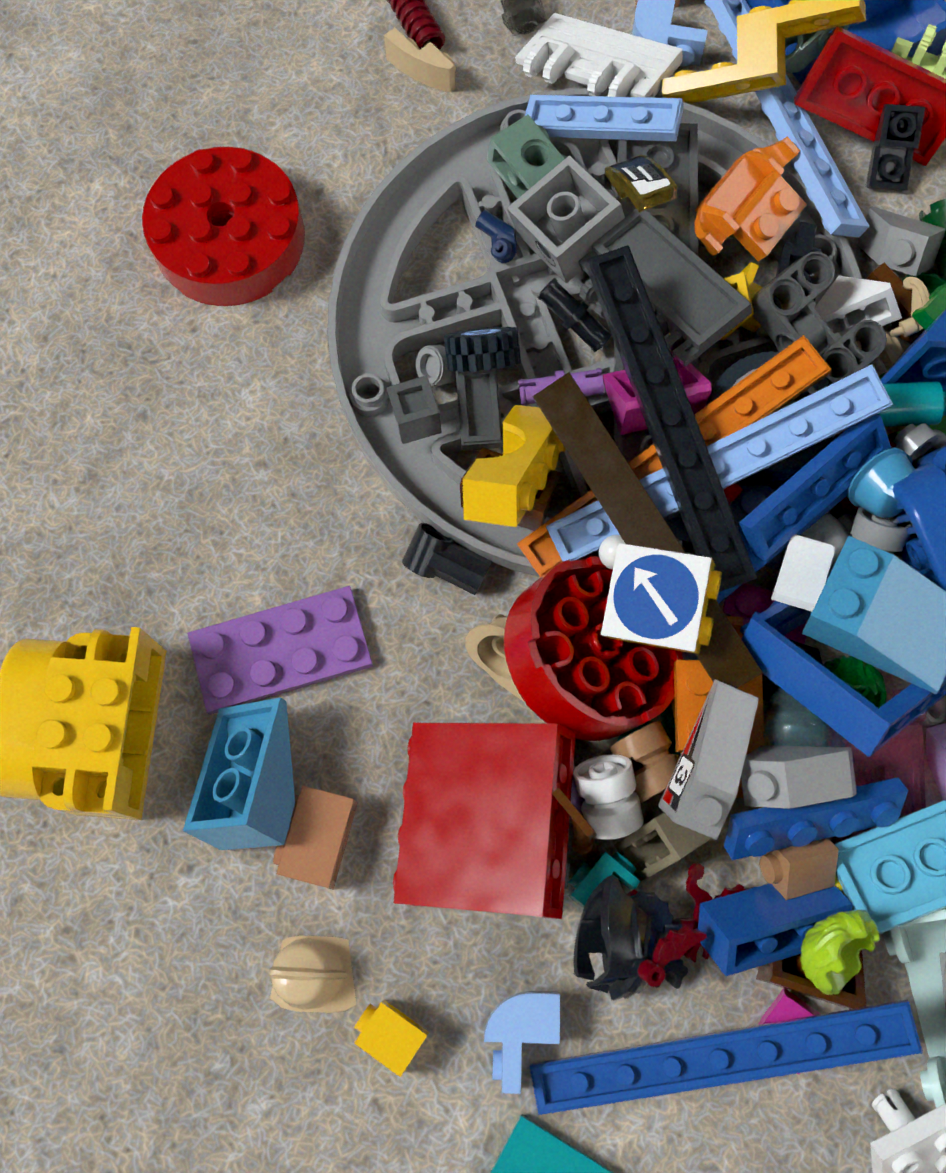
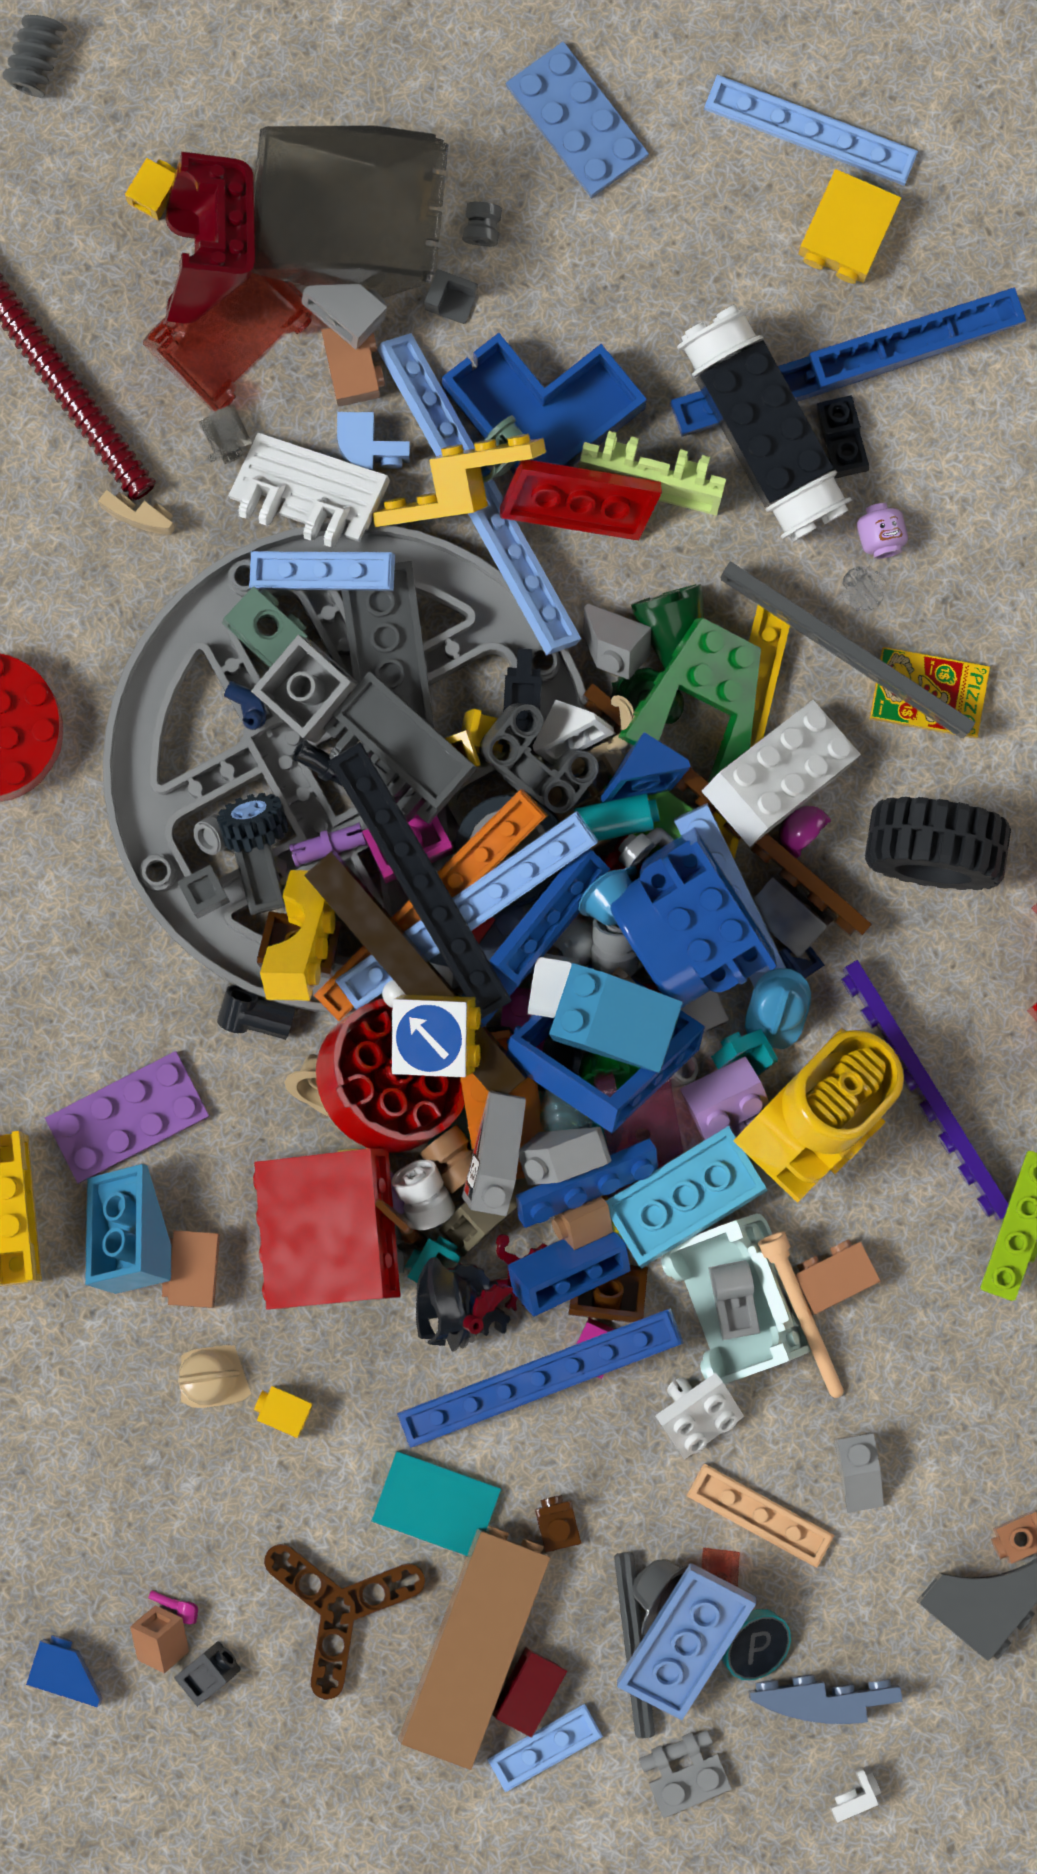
camera: 15 degrees left, 10 degrees up
(519, 1020) = (383, 1379): light blue brick -> none
(642, 182) = (366, 642): slope -> none
(751, 202) = (469, 635): orange plate -> none
(833, 949) = (612, 1281): lime hair -> none
(894, 147) = (602, 540): black slope -> none

